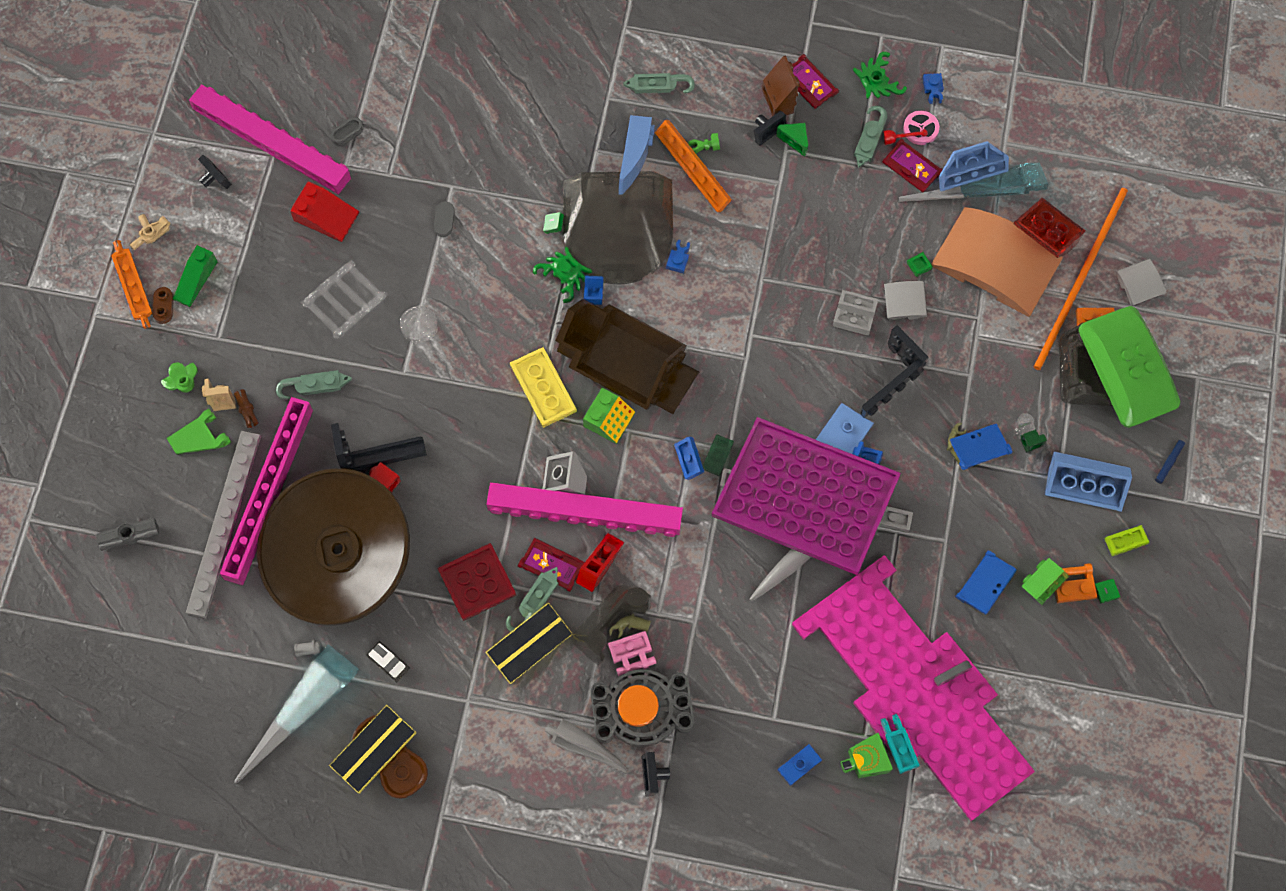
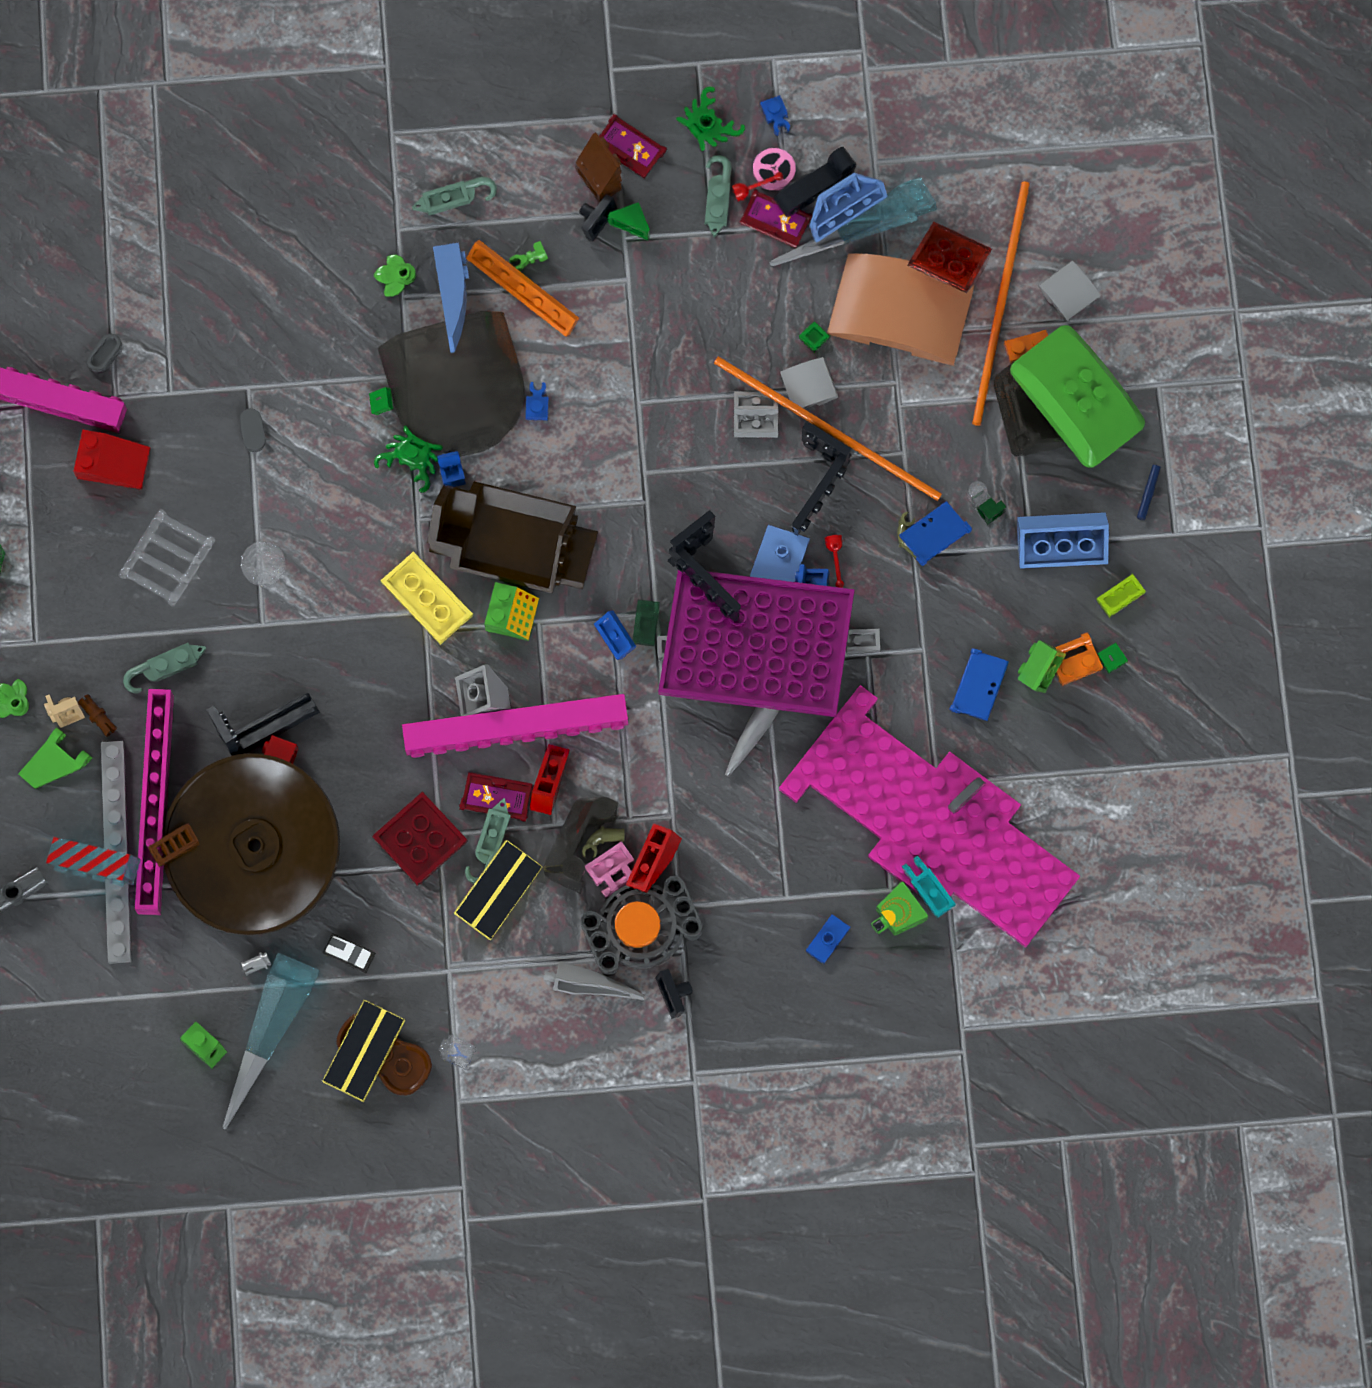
camera: 15 degrees left, 5 degrees up
(200, 525) = (93, 861): none -> clear light blue brick
(239, 703) = (203, 1044): none -> bright green torso
(270, 536) = (177, 851): none -> reddish brown slope
(452, 772) = (457, 1051): none -> clear brick
(592, 131) = (392, 275): none -> bright green plate
(669, 652) = (654, 857): none -> red slope
(767, 400) = (681, 553): none -> black bracket
(892, 433) = (834, 544): none -> red hinge
(932, 359) = (827, 428): none -> orange piece
(942, 148) = (808, 188): none -> black beam

